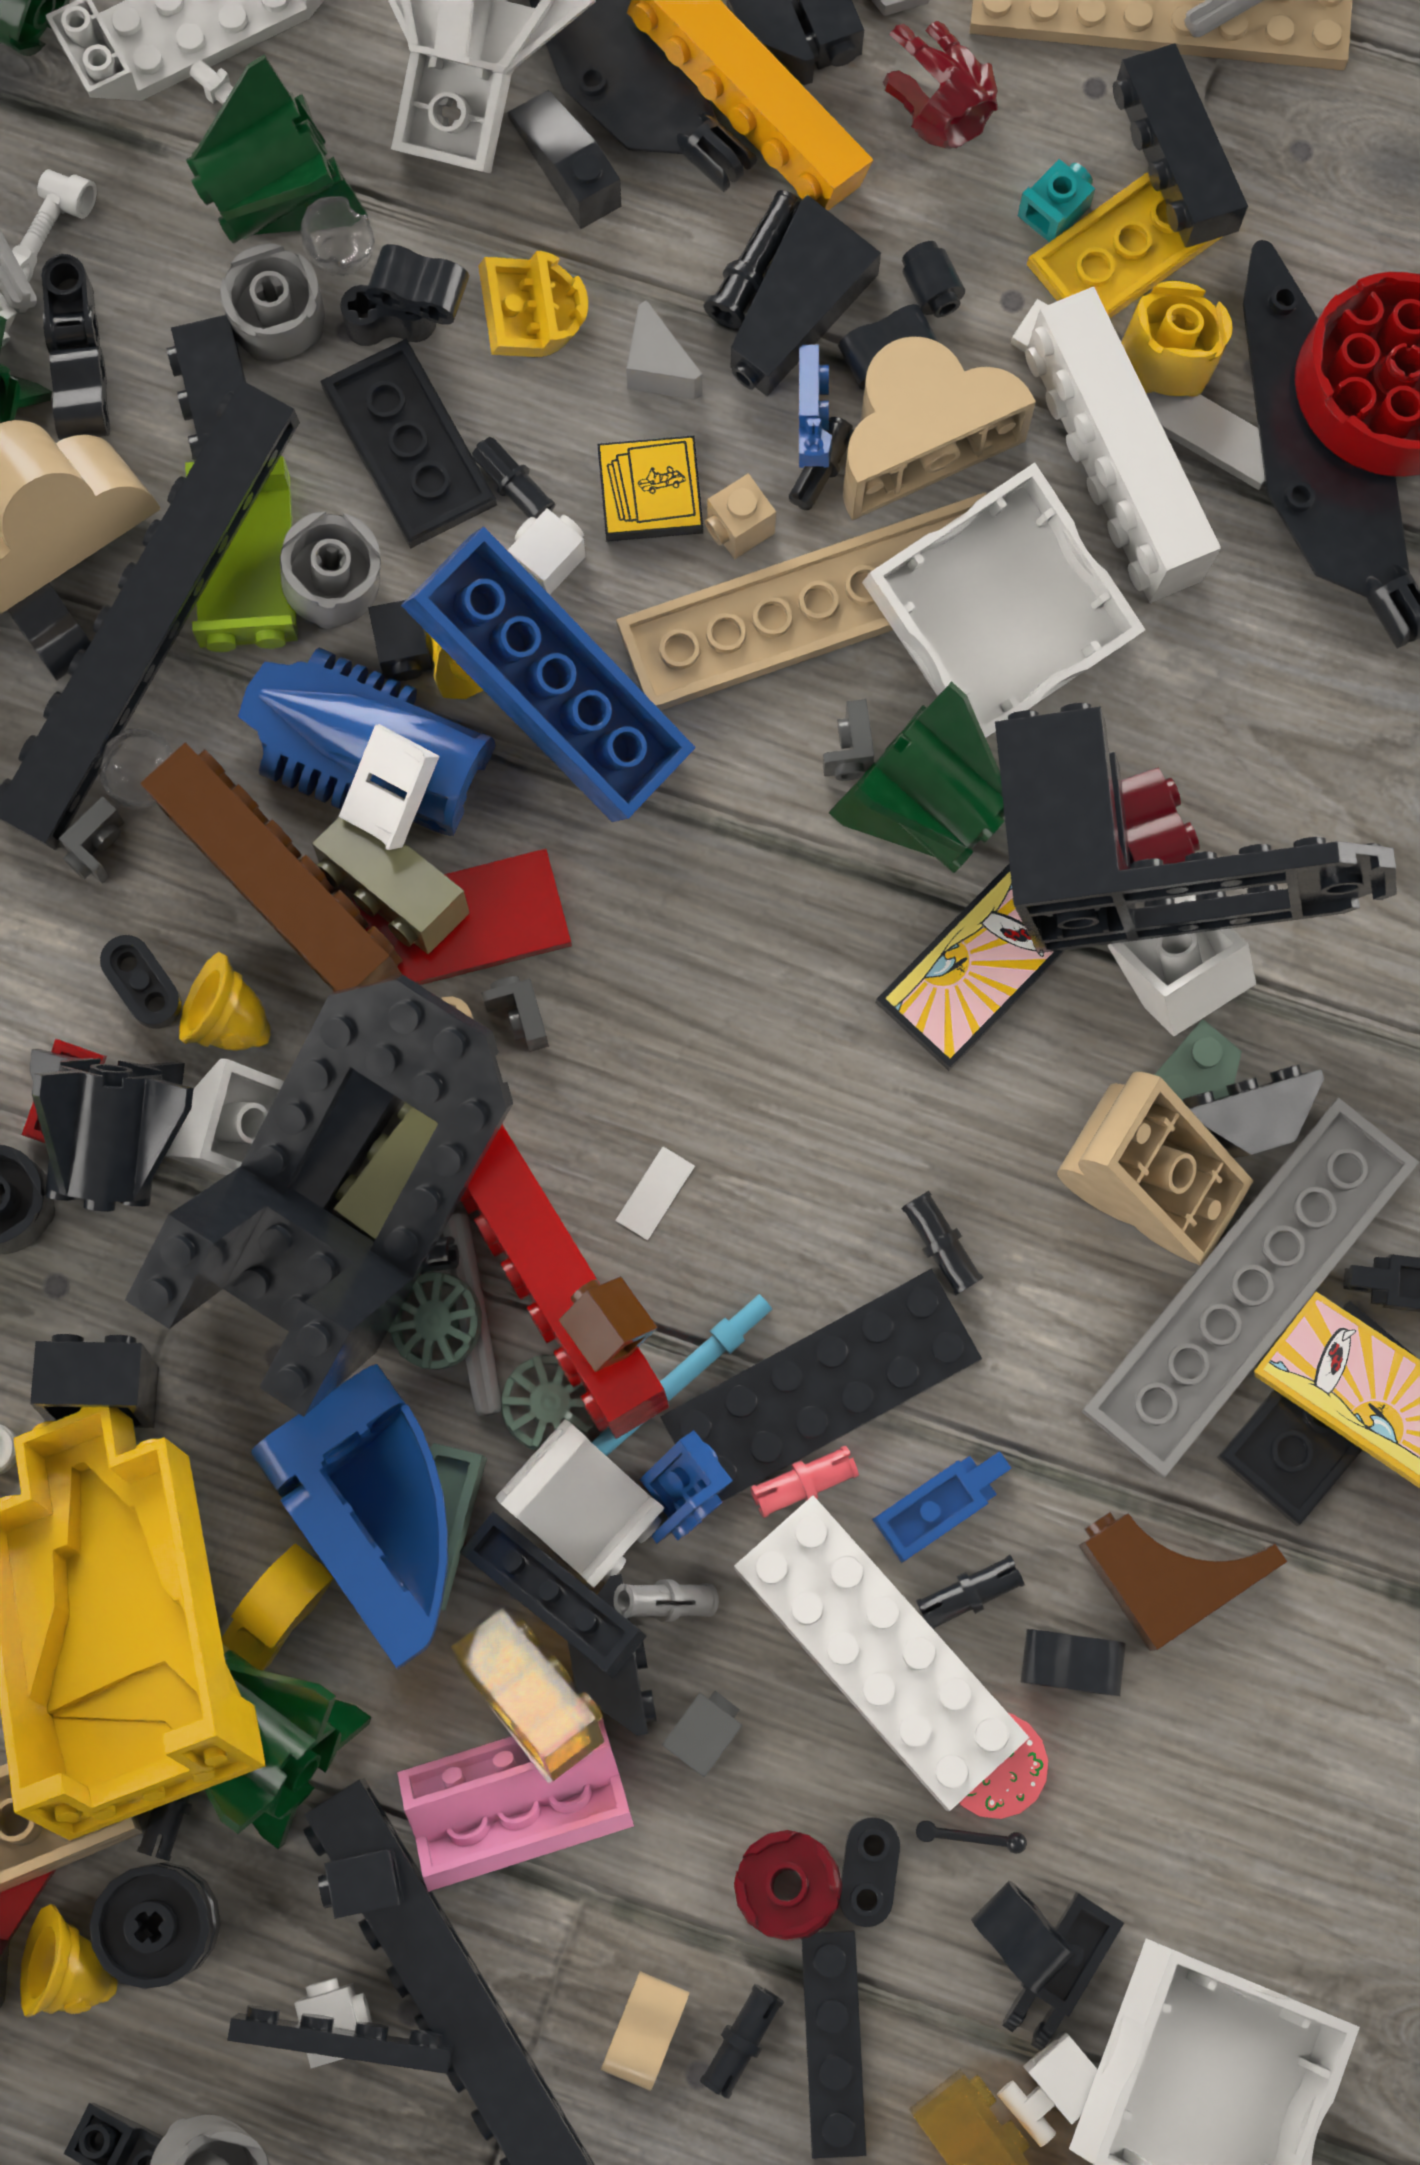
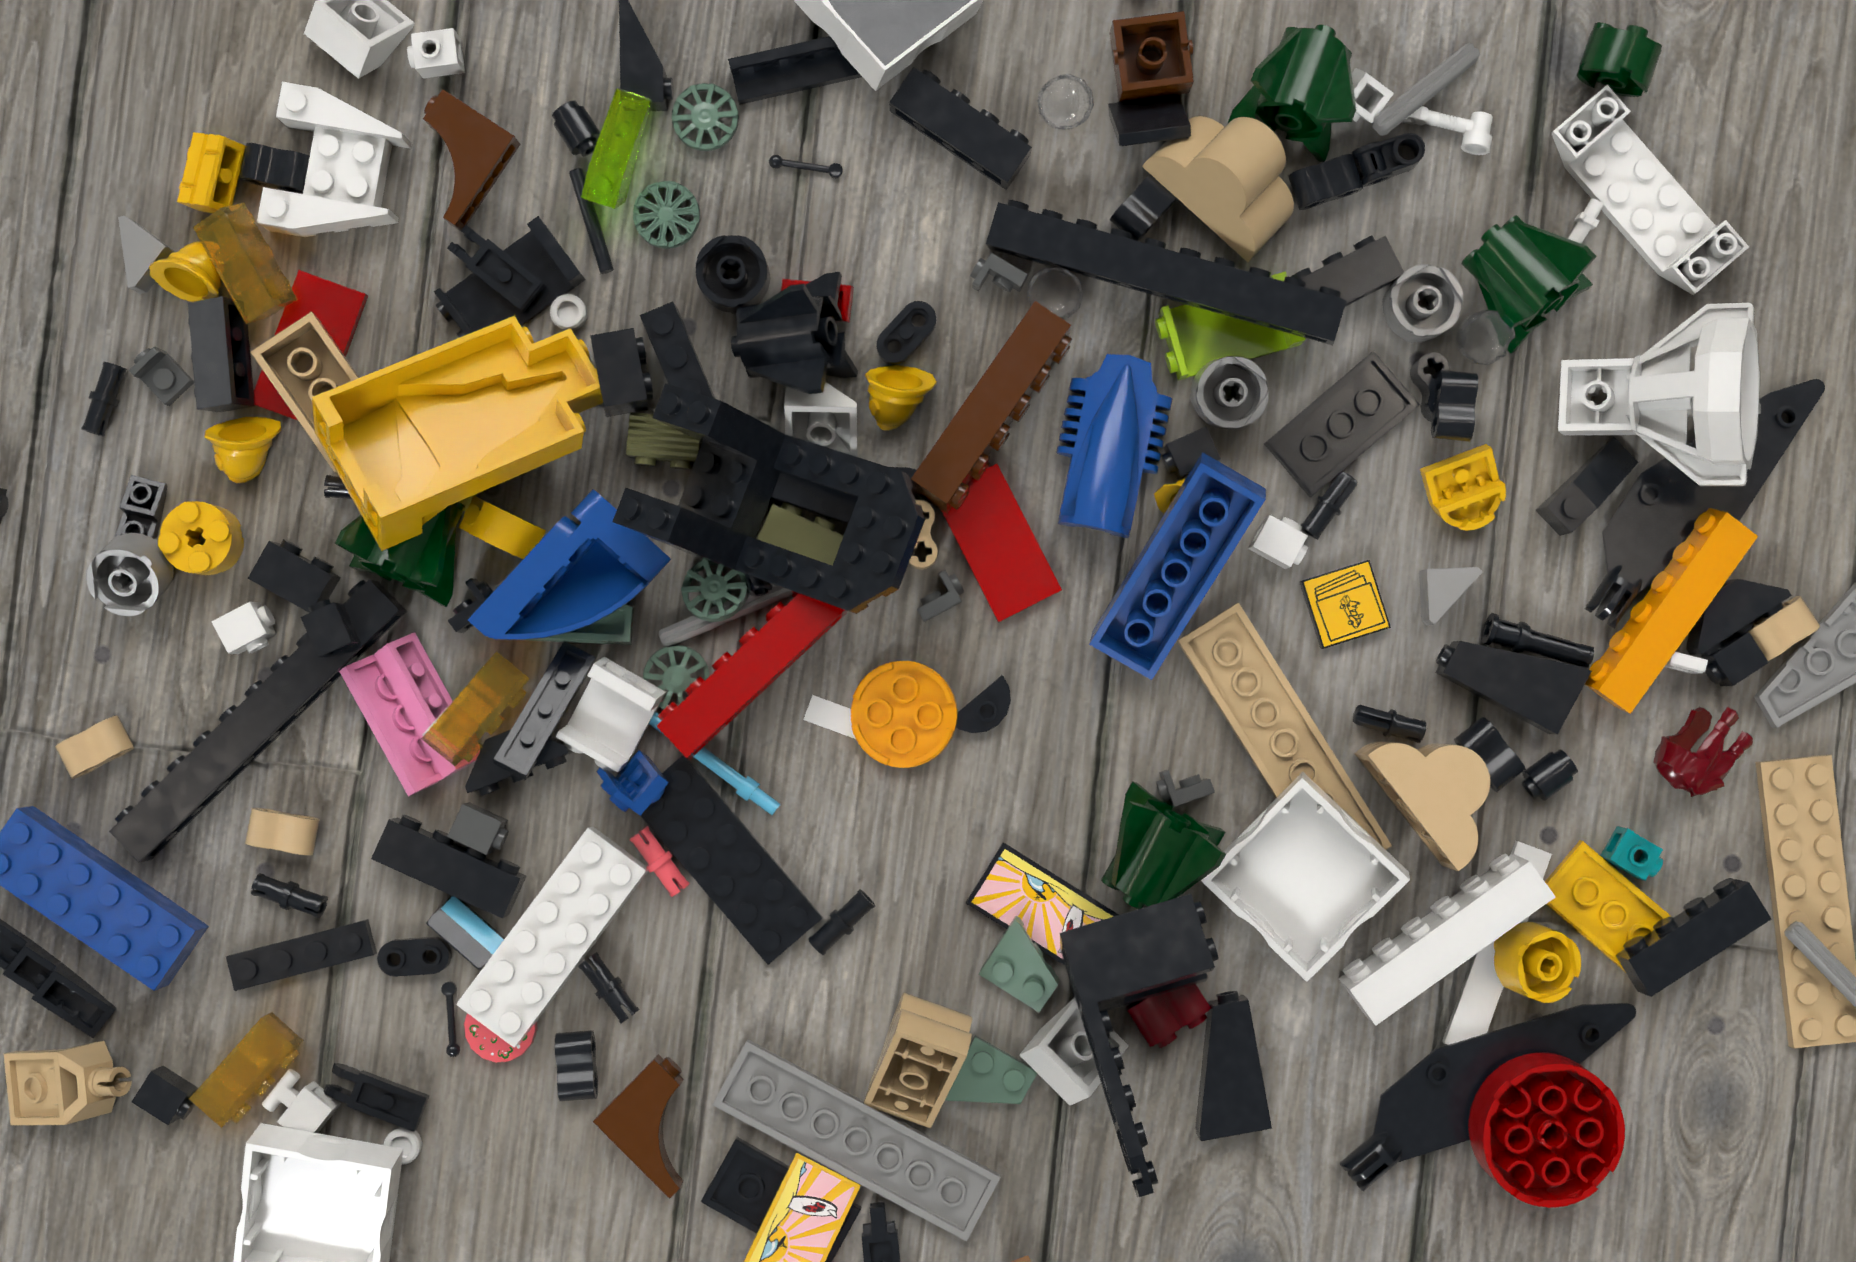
camera: 80 degrees right, 10 degrees up
(78, 1304) = (675, 349): none -> black brick
(123, 1931) = (260, 496): black wheel -> none
(152, 2061) = (181, 540): none -> yellow brick
(206, 1348) = (654, 440): none -> olive brick
(273, 1931) = (294, 576): none -> black brick
(318, 2036) = (228, 647): black plate -> none
(377, 808) = (1056, 468): white piece -> none
(386, 1682) = (467, 608): none -> black bracket
(393, 883) = (1011, 487): olive brick -> none
(607, 1322) = (719, 710): reddish brown brick -> none
(669, 1096) = (903, 714): none -> light orange tile
(686, 1600) = (557, 786): light grey pin -> none
(688, 986) = (986, 709): none -> black plate
(740, 516) = (1334, 673): tan brick -> none
(748, 1789) = (449, 866): none -> black brick
(814, 441) = (1421, 711): hinge -> none
(819, 1891) = (408, 920): dark red tile -> none
(824, 79) = (1687, 663): none -> white tile
(848, 1784) = (466, 931): none -> slope
(939, 1505) = (663, 956): blue hinge -> none
(1023, 1937) = (389, 1067): black axle -> none
(1053, 1011) = (1020, 967): none -> sand green wing
(1131, 1941) = (405, 1139): none -> white tile
(1250, 761) = (1231, 1077): none -> black slope
(1259, 1116) = (975, 1122): slope -> none

